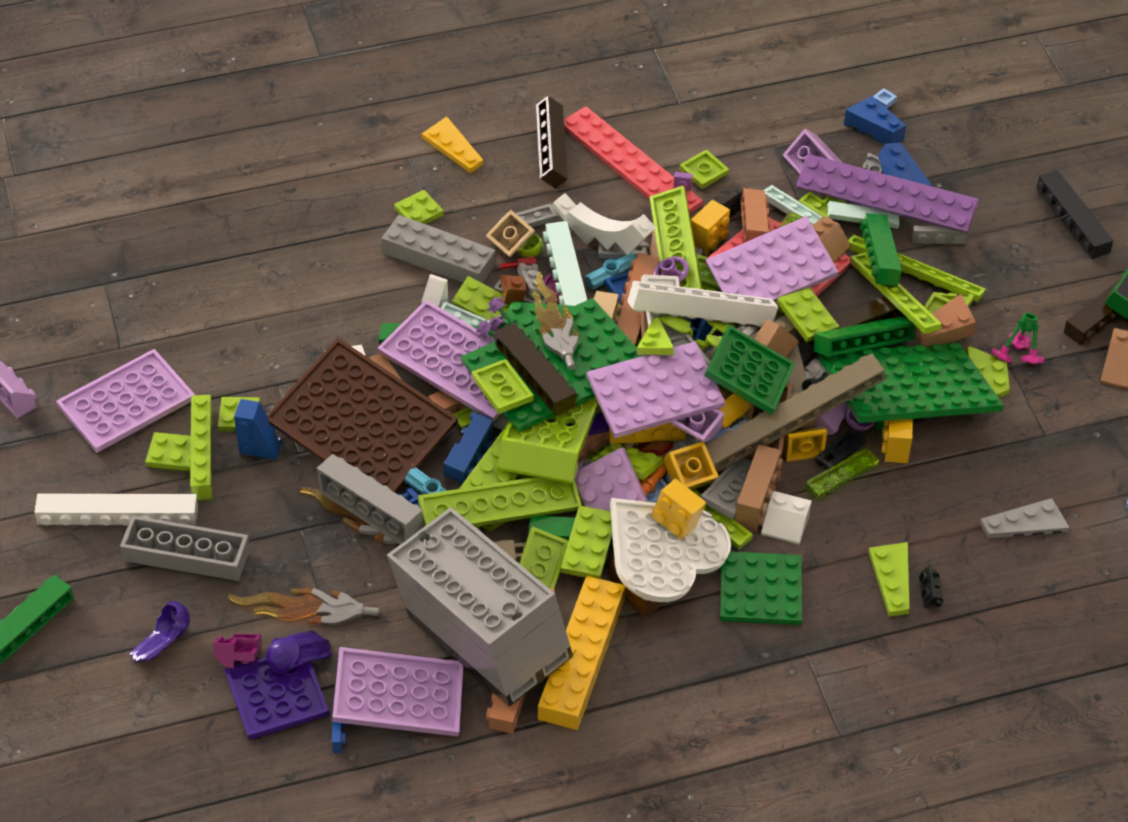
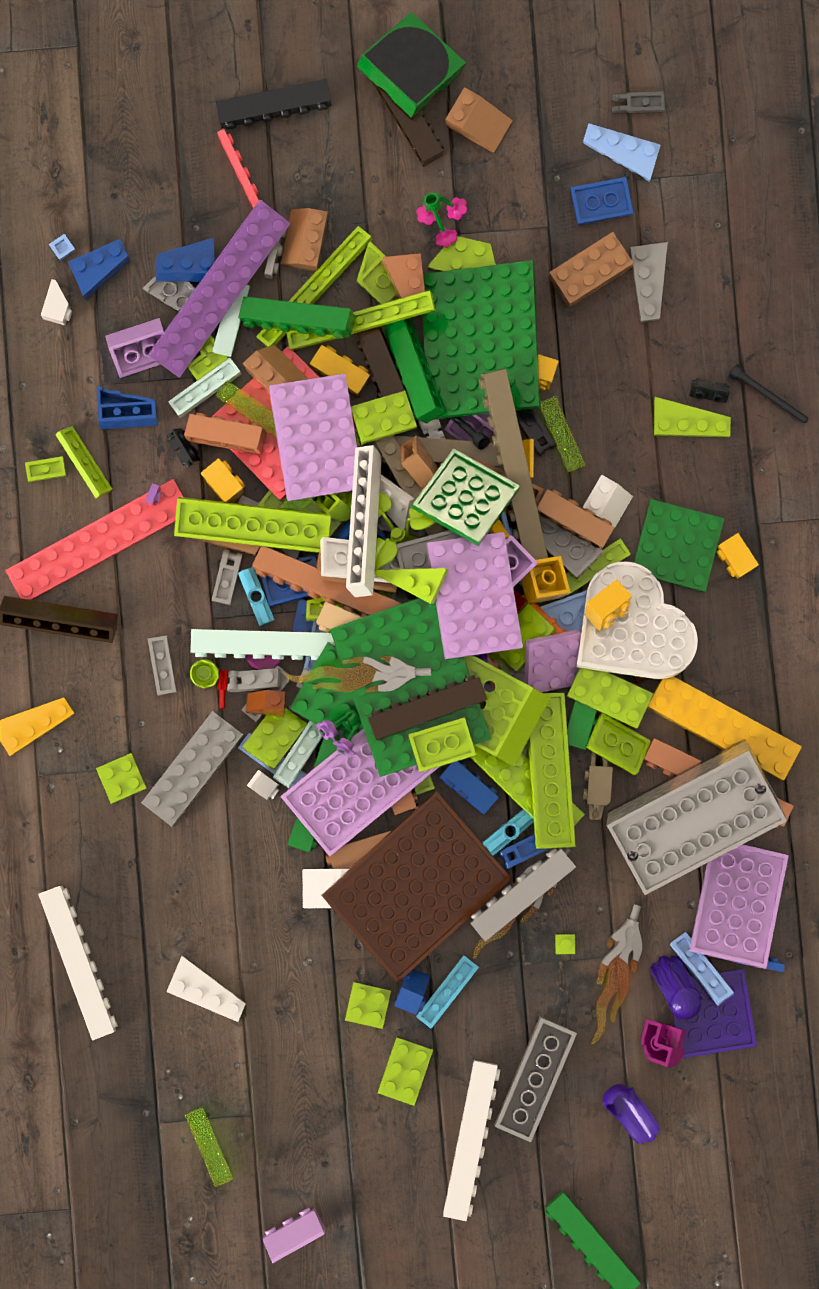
camera: 80 degrees left, 35 degrees up
(86, 318) = (209, 1146): none -> clear neon green plate
(125, 400) = (329, 1117): lavender plate -> none
(201, 431) = (409, 1048): lime arch -> none
(232, 294) = (199, 988): none -> white wing
(243, 203) = (77, 962): none -> white brick
(262, 470) = (447, 991): none -> medium azure plate
(315, 672) = (702, 970): none -> light blue plate
(327, 558) = (564, 943): none -> lime plate
(510, 233) = (196, 689): tan slope -> none
(591, 225) = (214, 590): white arch -> none
(669, 268) = (292, 546): medium lavender piece -> none
(683, 118) = (45, 469): none -> lime plate
(698, 140) = (84, 462): none -> lime plate
(705, 169) = (128, 466): lime plate -> none
(752, 155) = (125, 410): none -> blue wedge
(765, 636) = (736, 556): none -> yellow brick
(833, 101) = (56, 306): none -> white slope
(845, 293) = (329, 364): none -> yellow brick
(957, 608) = (739, 374): none -> black piece
(959, 257) = (304, 239): none -> medium nougat slope
(1002, 200) = (242, 173): none -> coral plate
(1015, 467) = (590, 270): none -> medium nougat brick
(1088, 468) = (601, 201): none -> blue plate

